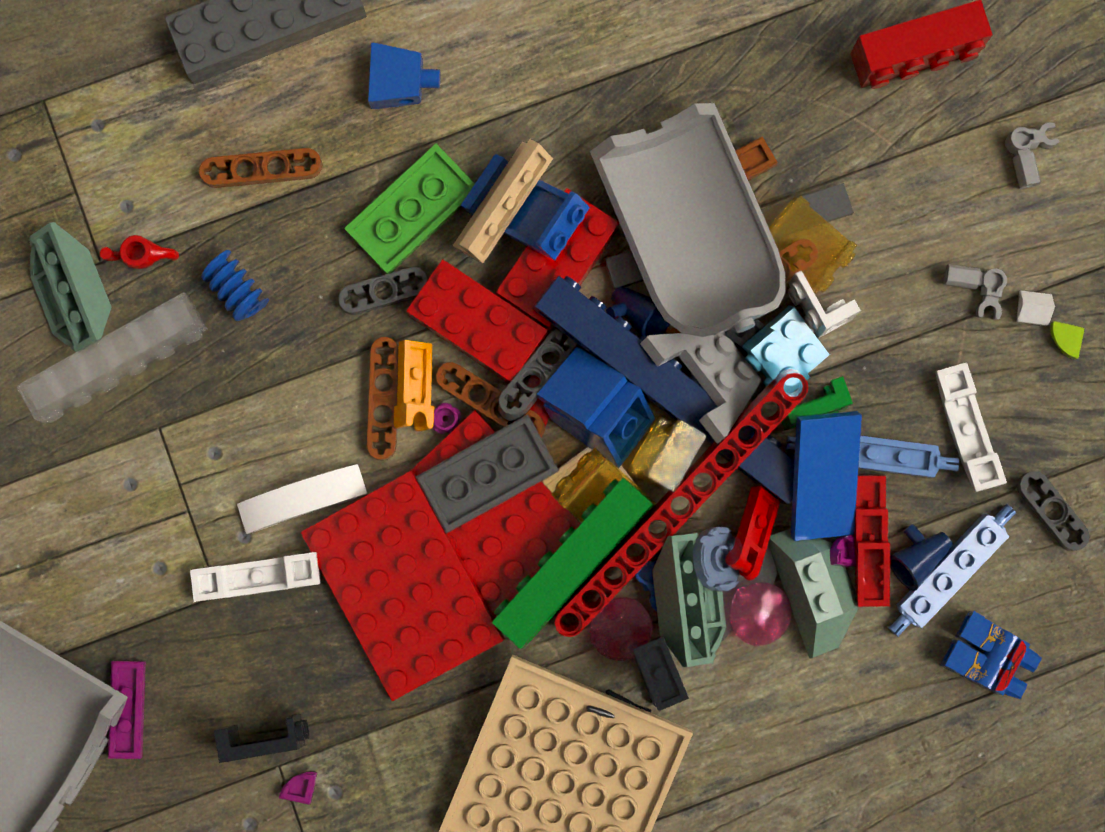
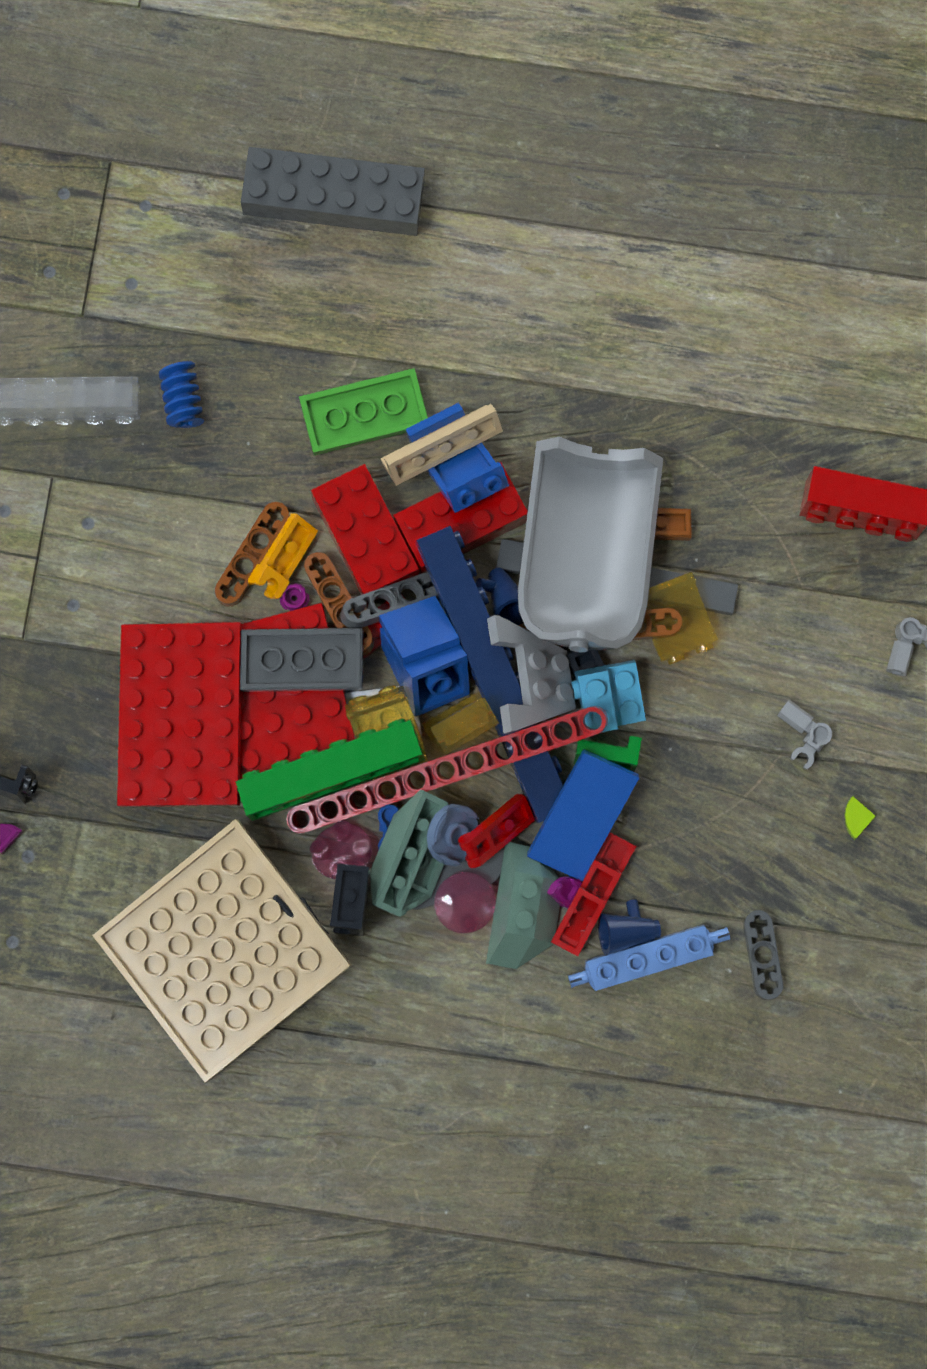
camera: 25 degrees right, 5 degrees down
(68, 287) = (46, 322): sand green wedge -> none
(138, 253) = (119, 326): red piece -> none
(255, 577) = (62, 641): white slope -> none
(260, 162) = (261, 307): dark orange beam -> none
(301, 498) = (138, 598): white slope -> none
(372, 283) = (283, 452): dark grey beam -> none
(398, 77) = (413, 298): blue torso -> none
(815, 317) = (669, 688): white bracket -> none
(899, 457) = (656, 837): medium blue plate -> none
(968, 428) = (730, 844): white slope -> none
(1000, 659) = (648, 1051): blue hips -> none
(1035, 308) = (843, 777): white slope -> none

